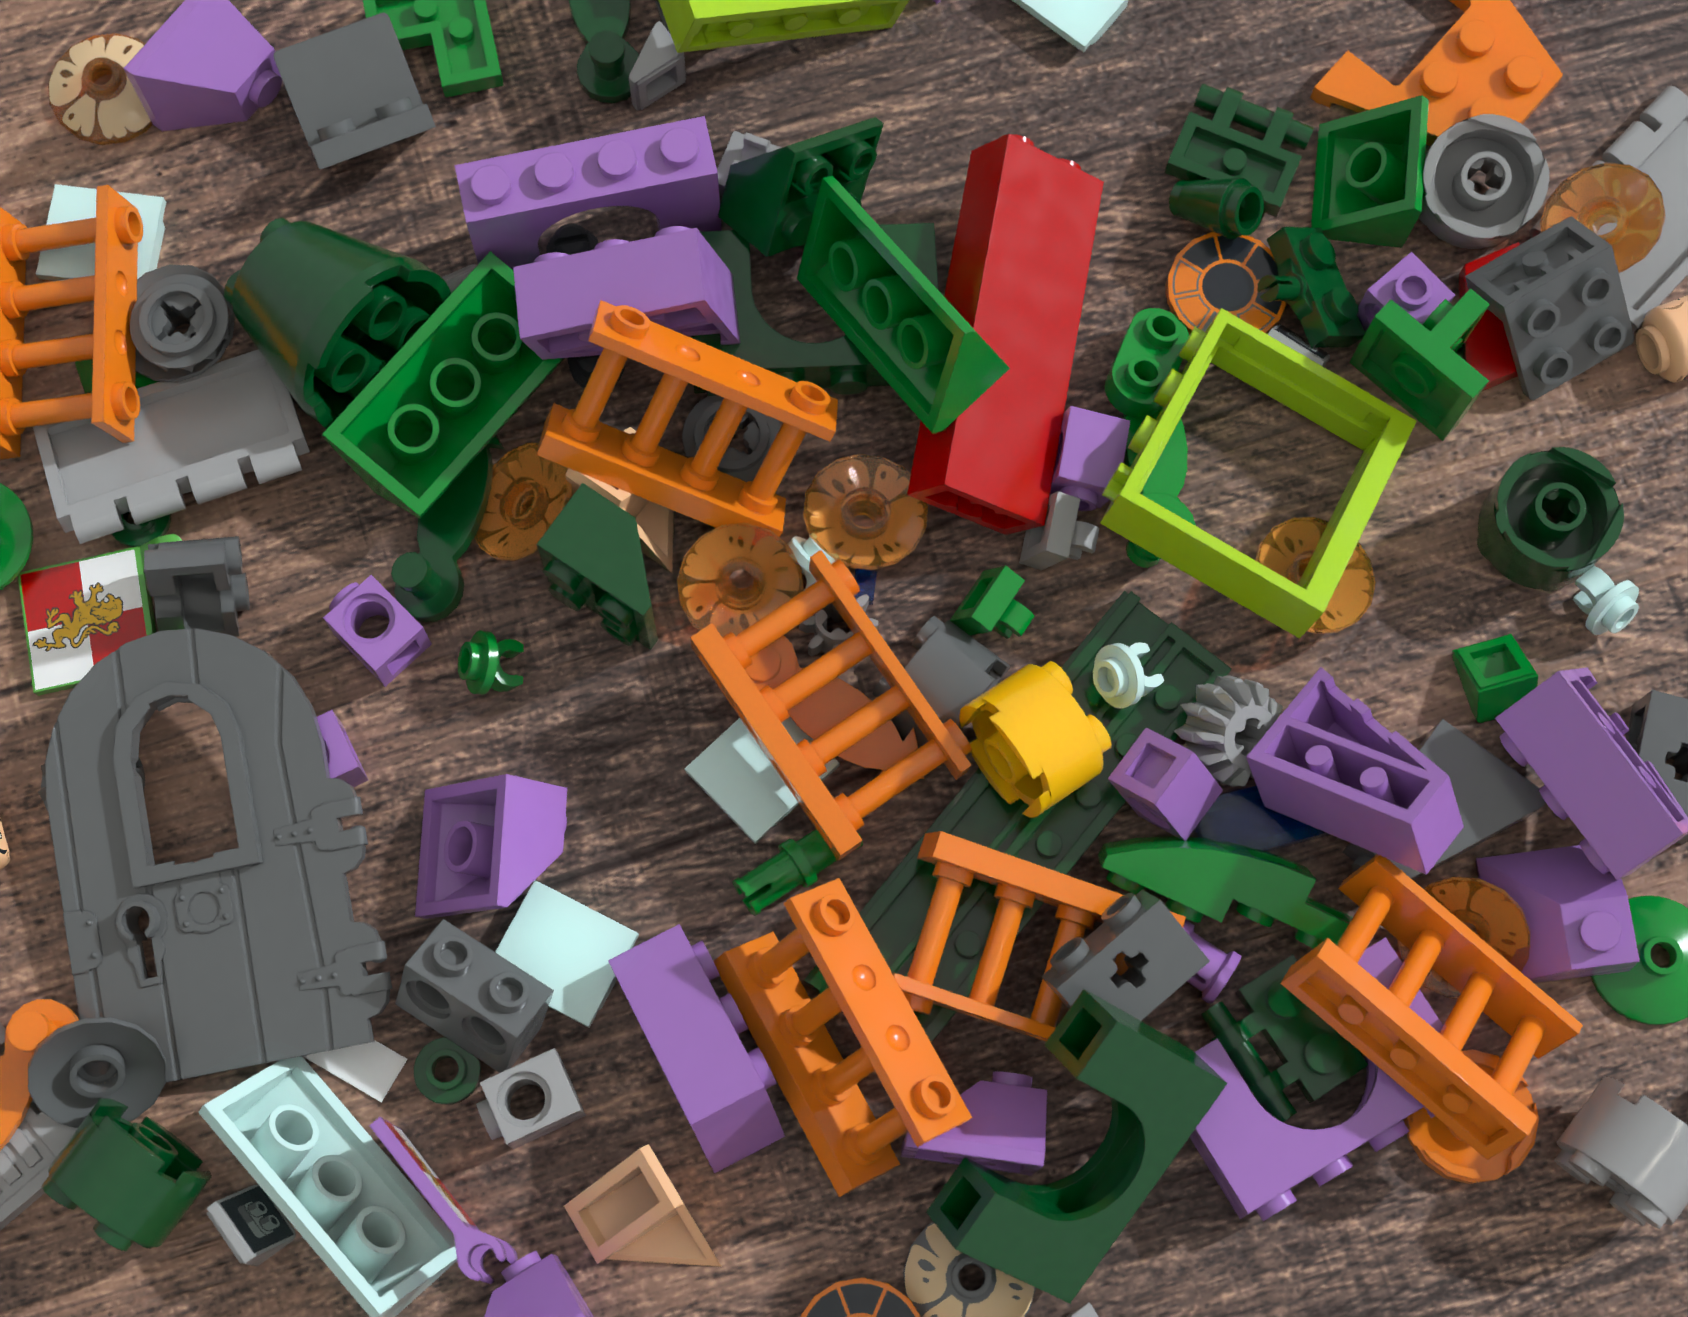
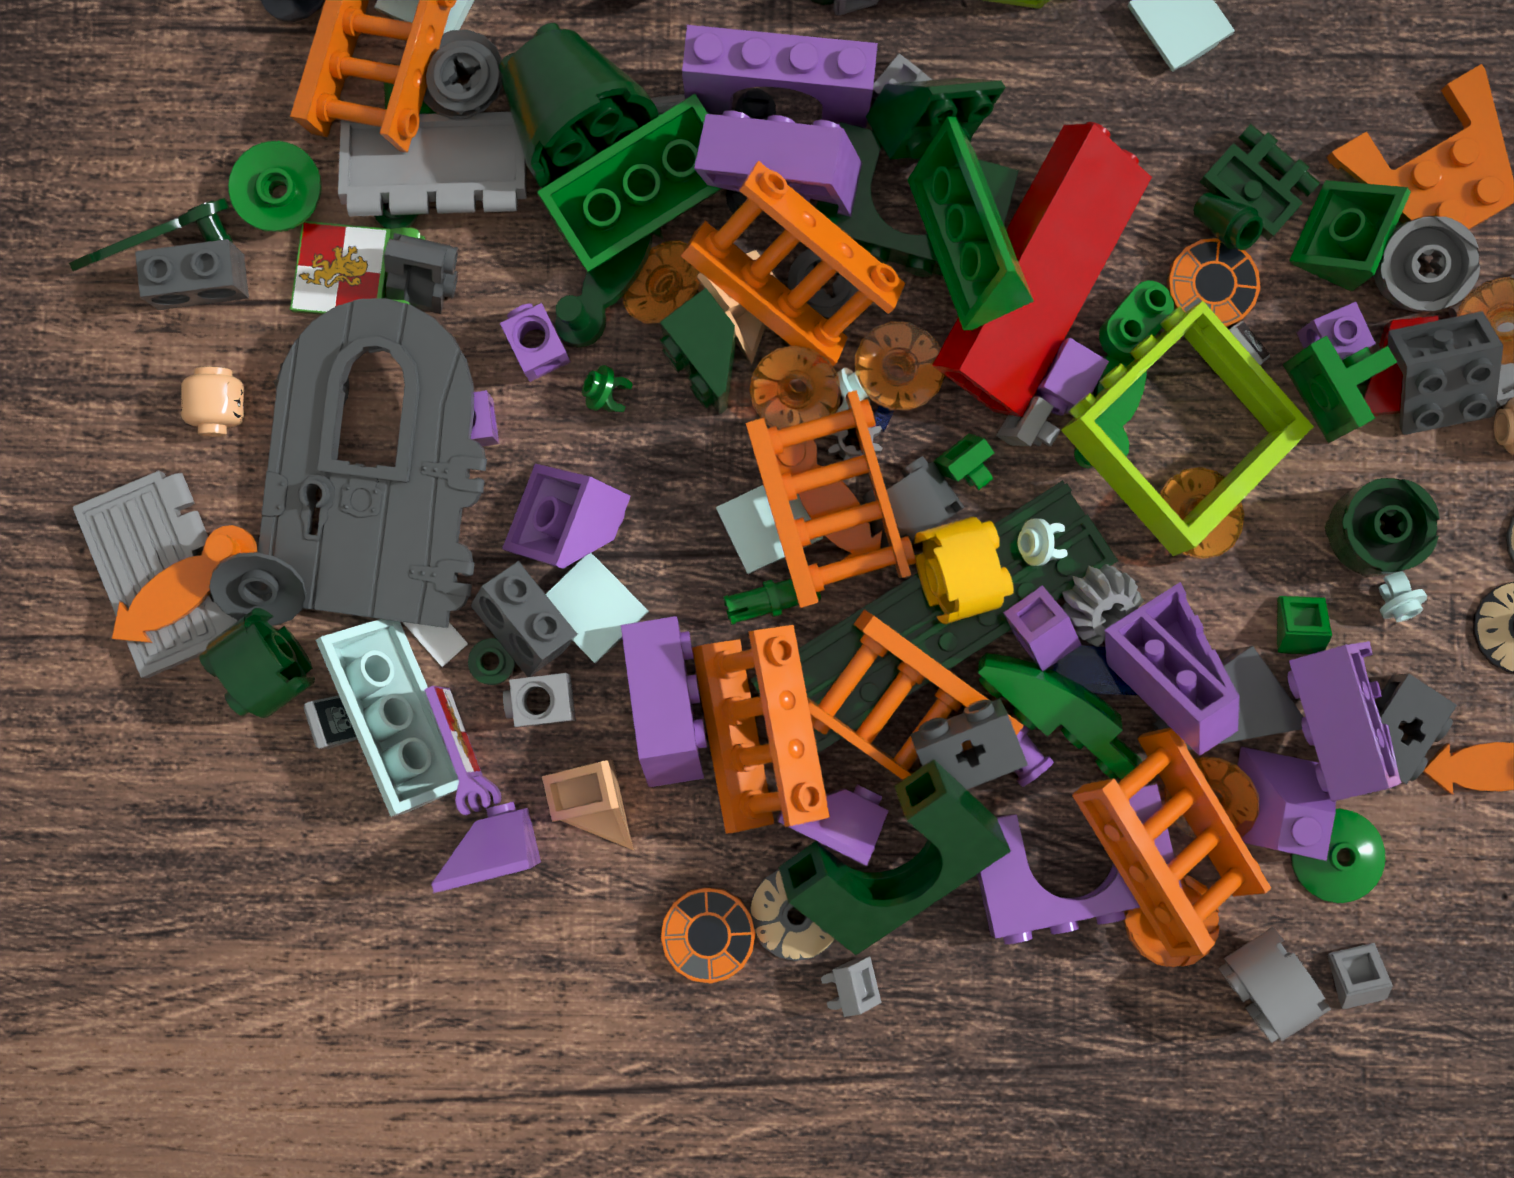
camera: 20 degrees right, 10 degrees up
(1305, 1044) = (1074, 835): dark green plate -> none
(1312, 287) = (1275, 302): dark green plate -> none

